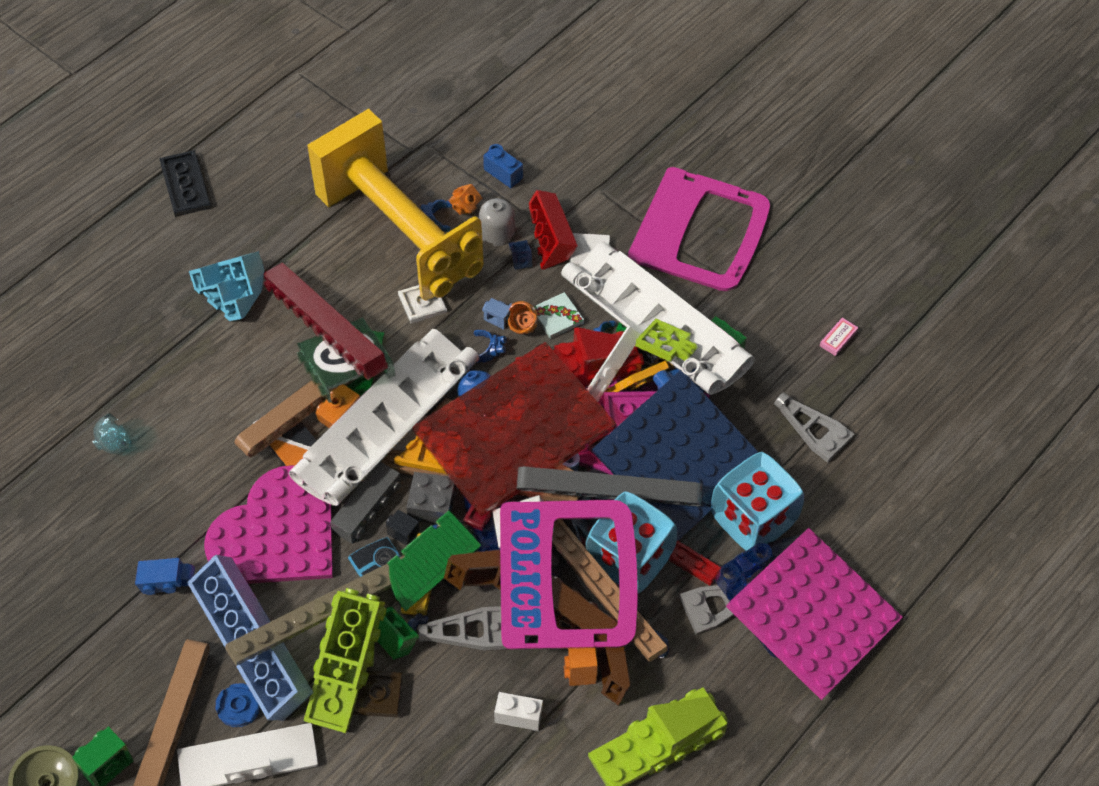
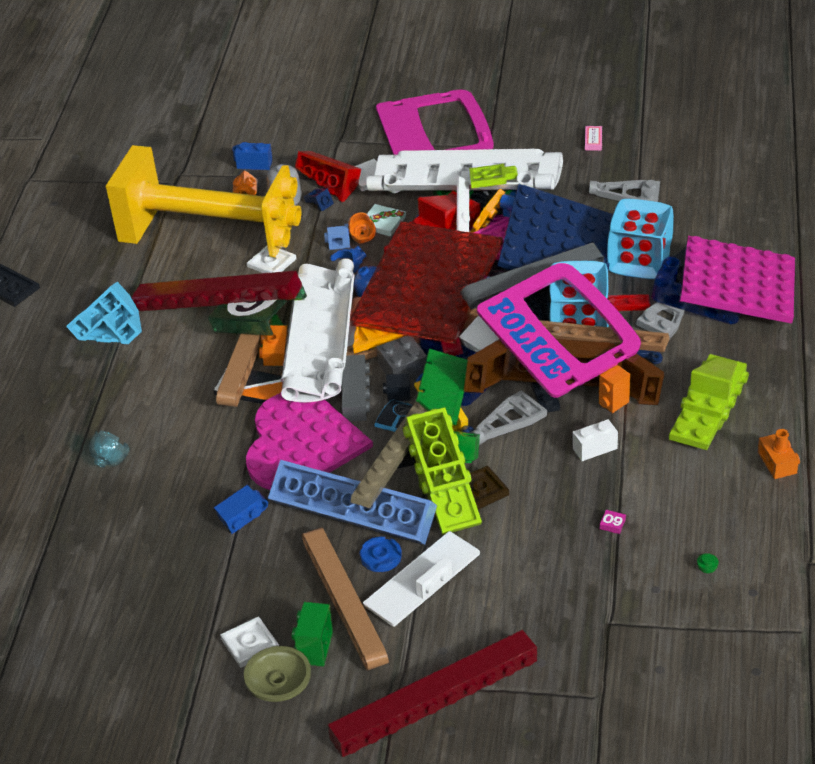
camera: 30 degrees left, 15 degrees down
(61, 723) = (248, 640): none -> white tile

